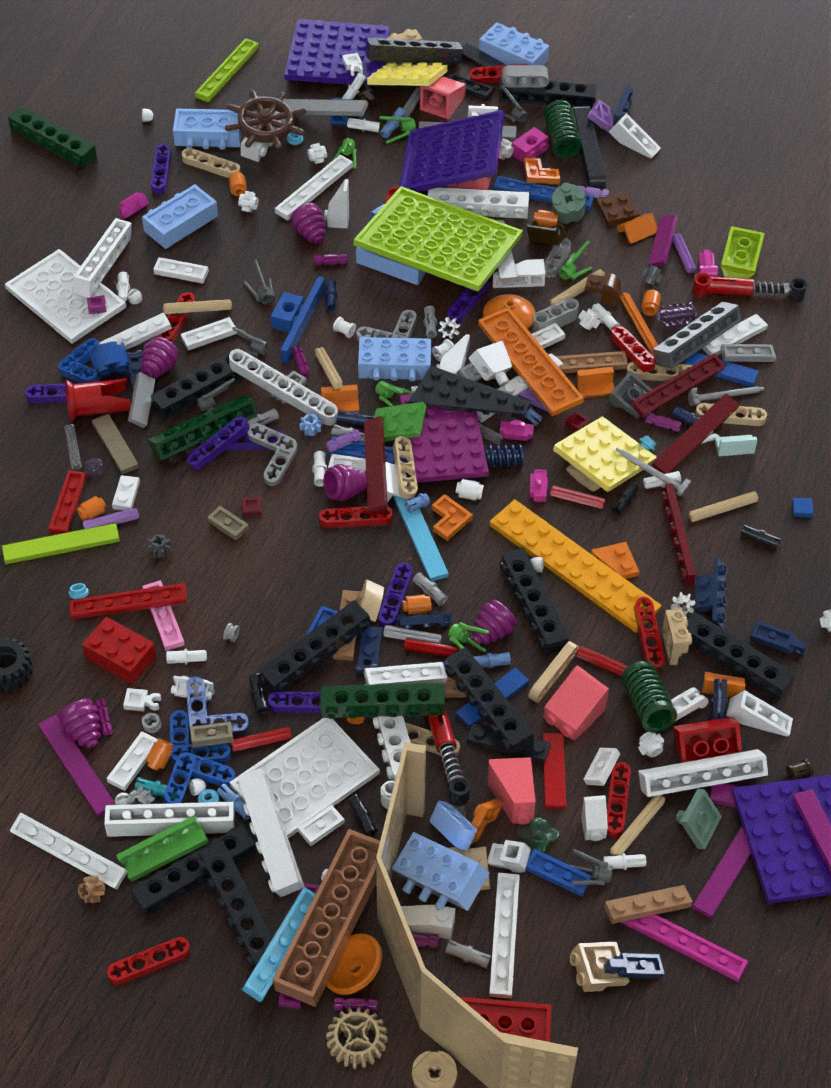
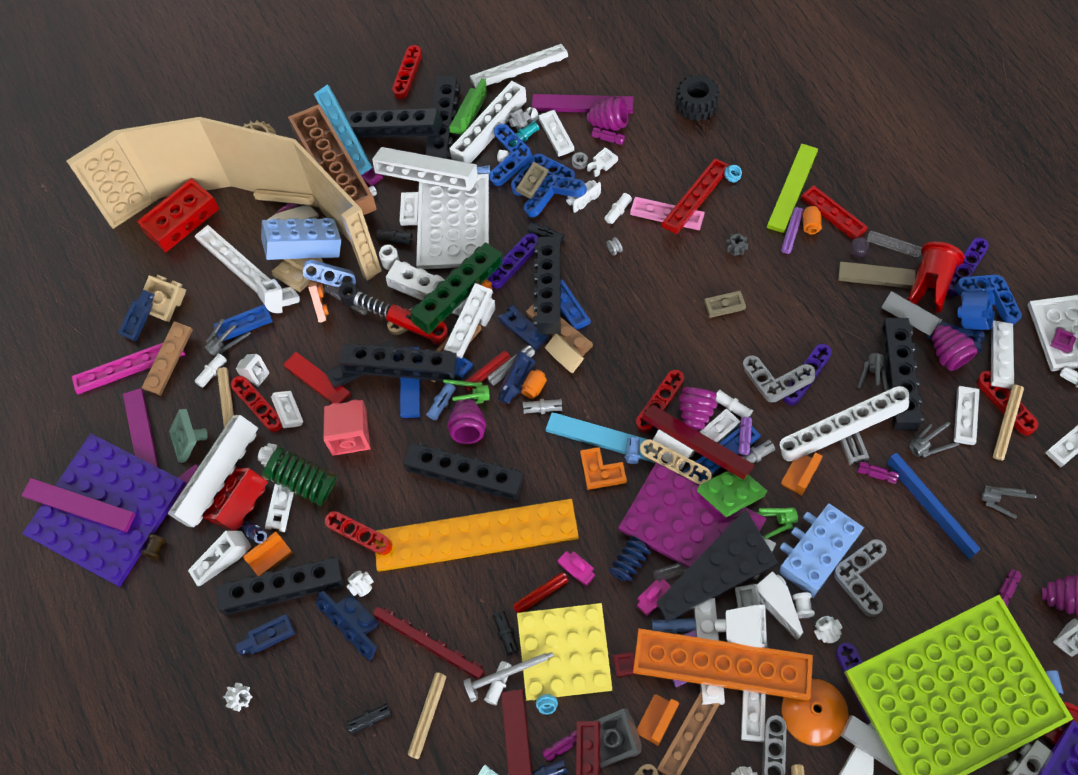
camera: 135 degrees right, 10 degrees up
(91, 889) = (478, 62): medium nougat gear -> none
(119, 650) = (655, 168): red brick -> none
(126, 493) = (814, 255): white plate -> none
(134, 296) = (1059, 384): white hinge -> none
(159, 754) = (545, 145): orange brick -> none
(201, 427) = (843, 341): dark green brick -> none
(208, 793) = (489, 158): medium azure plate -> none
(220, 445) = (811, 339): dark purple beam -> none
(251, 506) = (731, 333): dark red tile -> none
(261, 739) = (508, 215): red axle -> none
(269, 415) = (823, 393): light grey pin -> none
(286, 312) = (950, 486): blue brick -> none
(310, 424) = (787, 422): light blue gear -> none
(328, 368) = (846, 481): tan axle -> none
(330, 295) = (953, 554): dark blue pin -> none
(344, 327) = (896, 535): white bush -> none
(352, 418) = (771, 470): dark blue pin -> none
(392, 594) = (556, 379): dark purple beam -> none
(430, 321) = (852, 621): light grey pin -> none
(468, 954) = (244, 233): light grey pin -> none
(469, 489) = (616, 506): white brick -> none
(513, 784) = (320, 331): coral slope -> none
(538, 564) = (498, 502): white hinge -> none
(538, 834) = (282, 334): clear green plate -> none
(553, 672) = (391, 438): tan beam -> none
(601, 660) = (368, 483): red axle -> none
(618, 559) = (450, 573): orange wing -> none
(675, 635) = (334, 543): tan plate -> none

